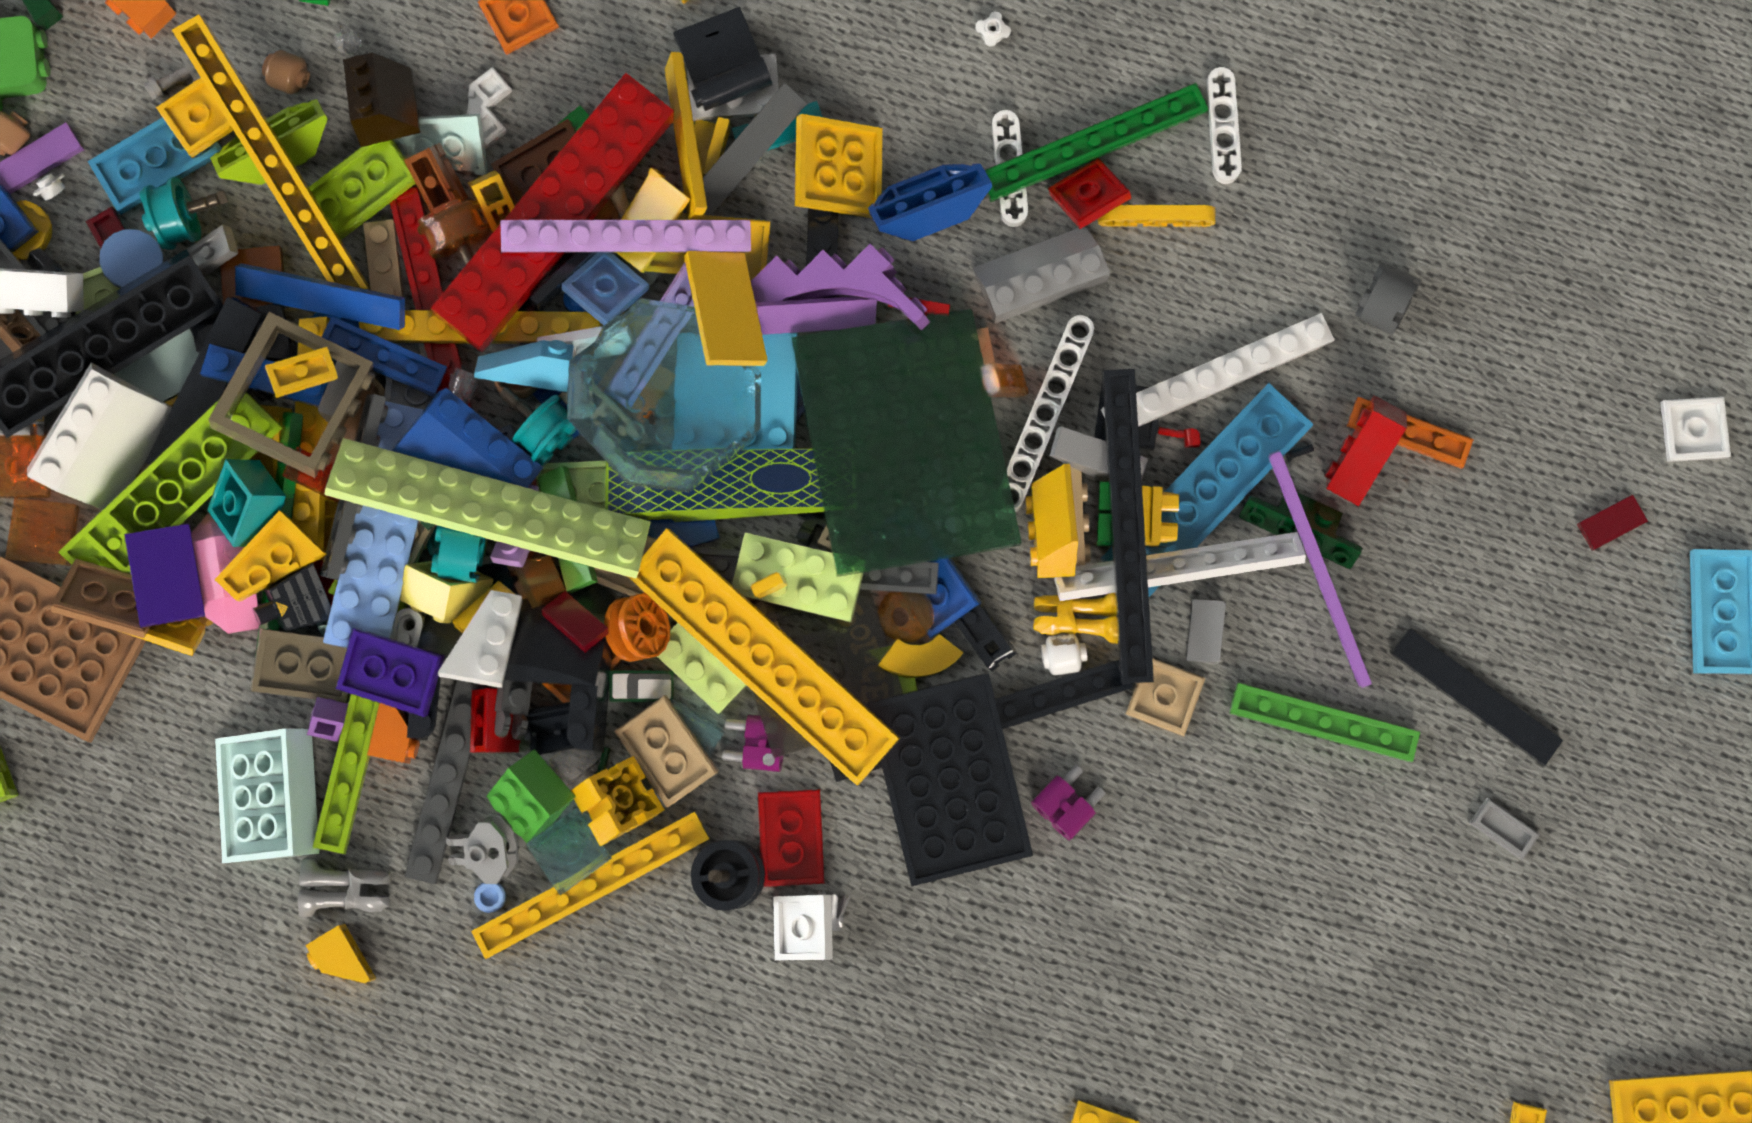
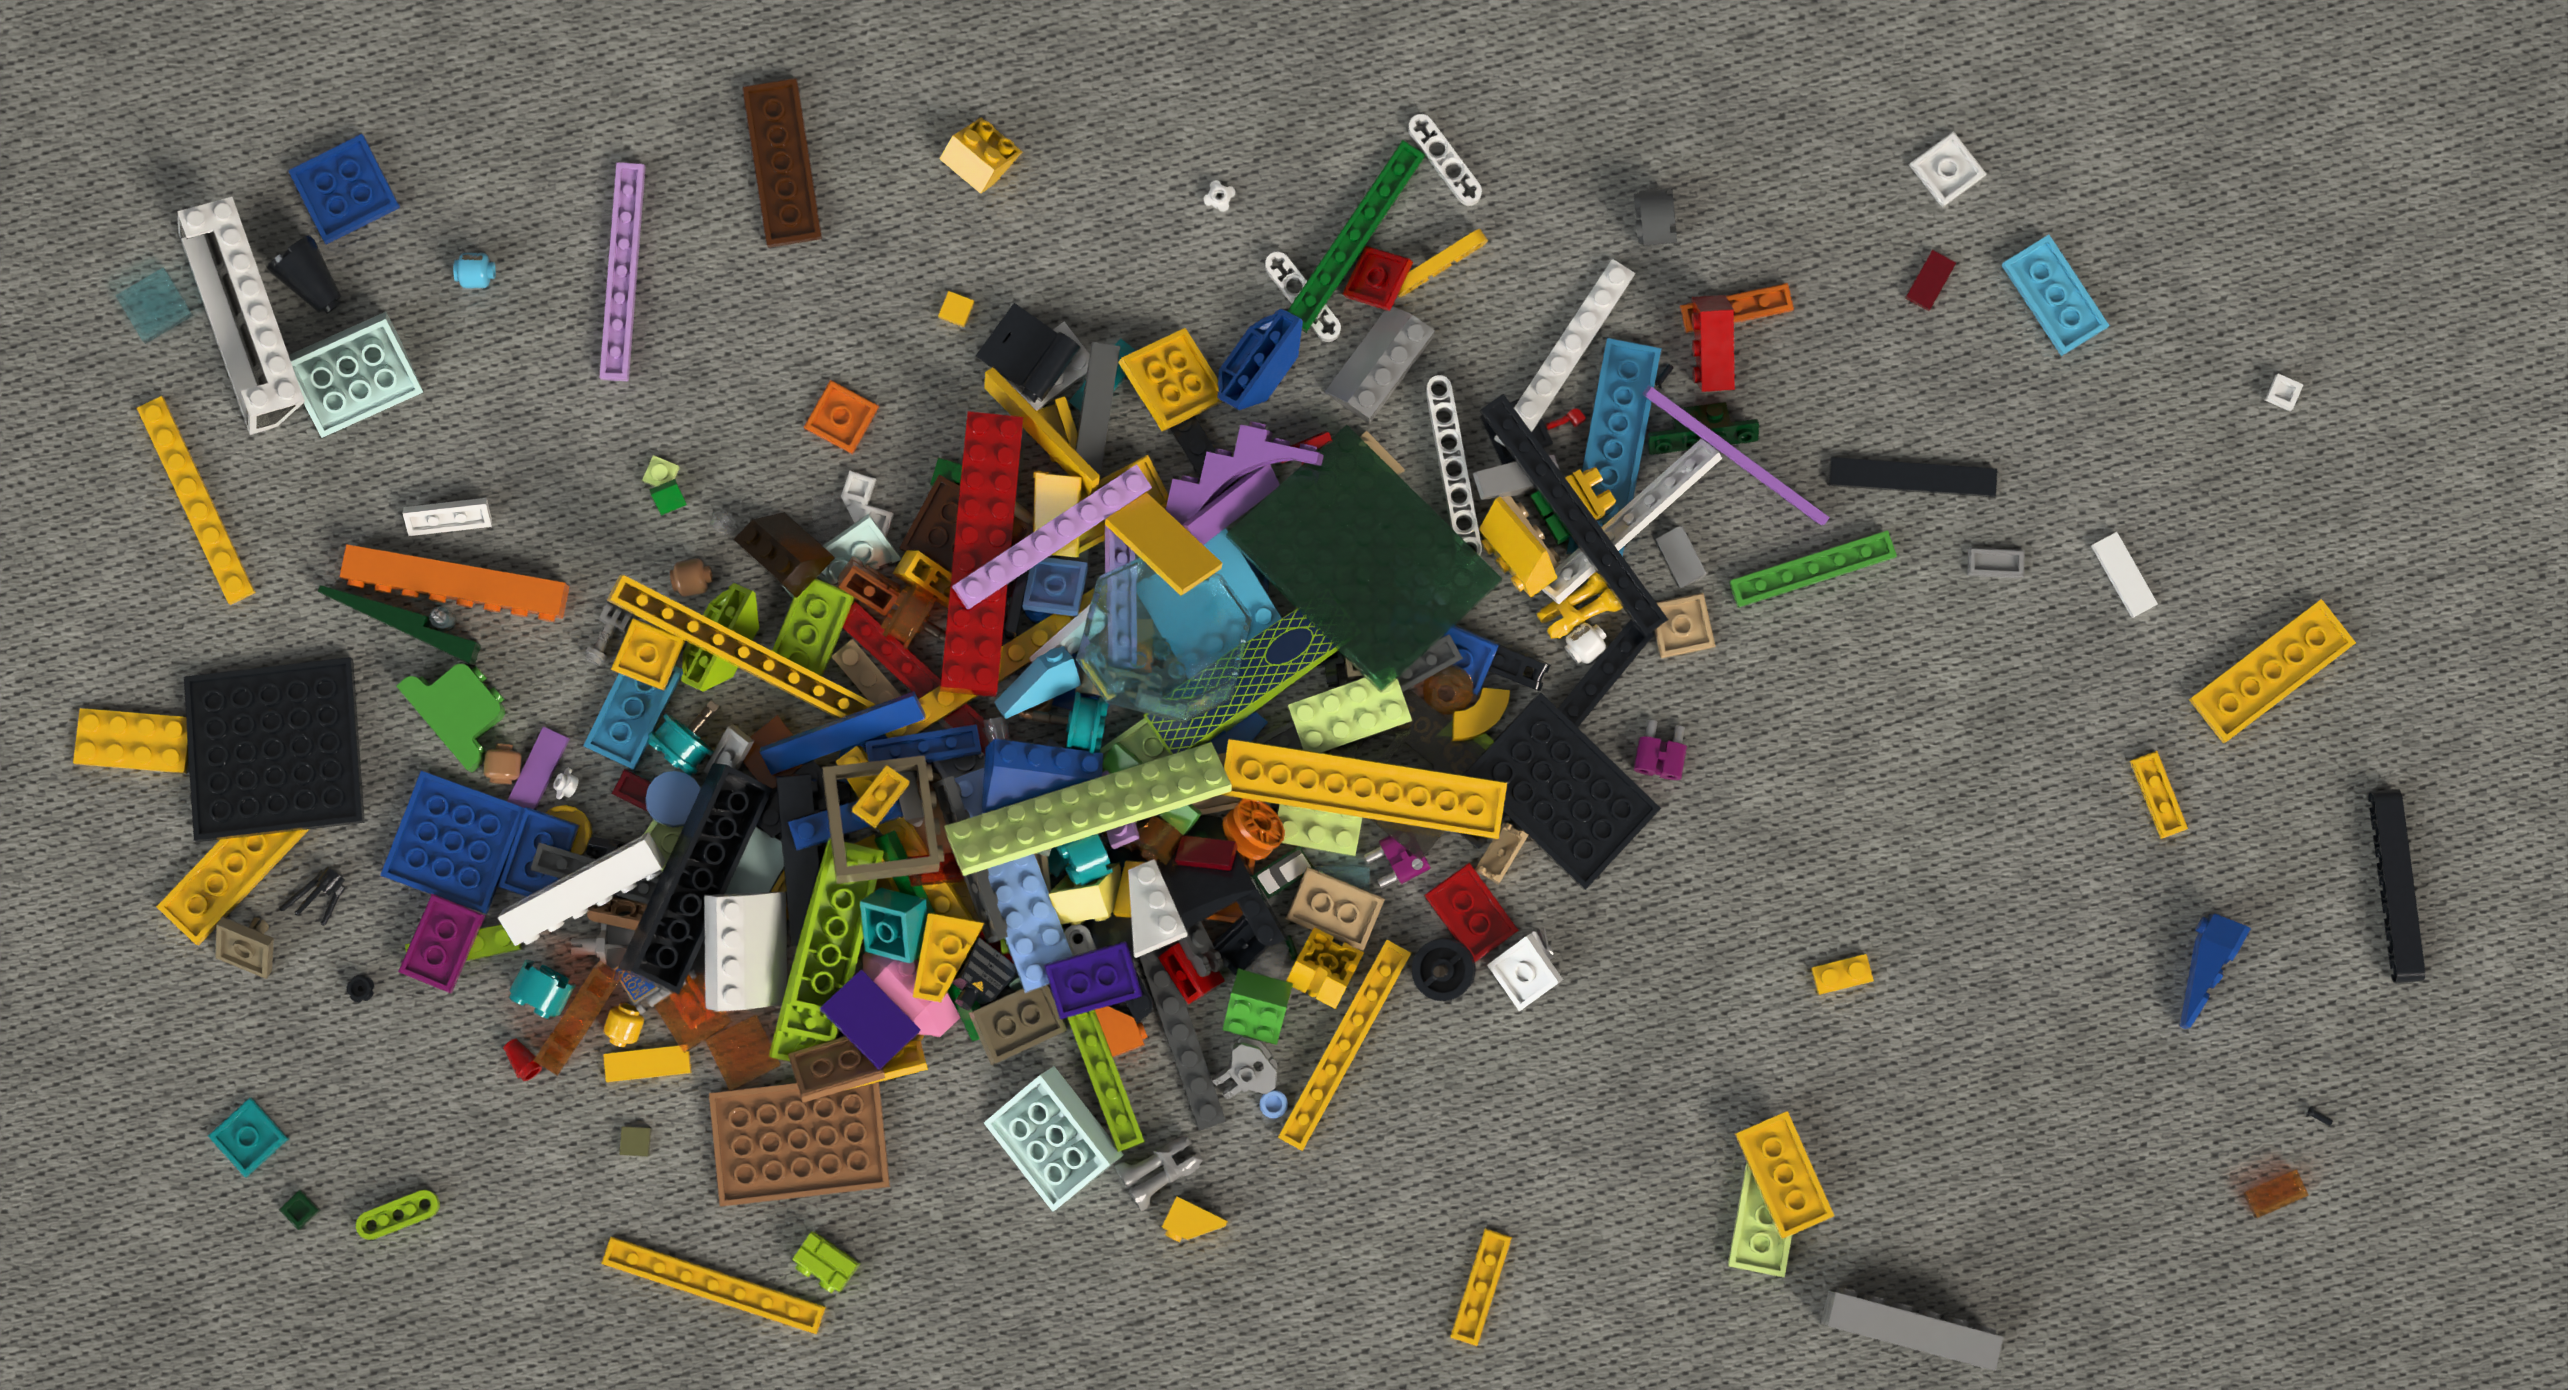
camera: 35 degrees left, 0 degrees up
(327, 719) = (1063, 1050): medium lavender plate -> none
(568, 851) = (1311, 1030): clear light blue tile -> none
(768, 585) = (1334, 731): yellow tile -> none
(855, 800) = (1501, 853): none -> tan hinge
(1004, 380) = (1407, 463): clear orange plate -> none
(1622, 920) = (2124, 575): none -> white tile

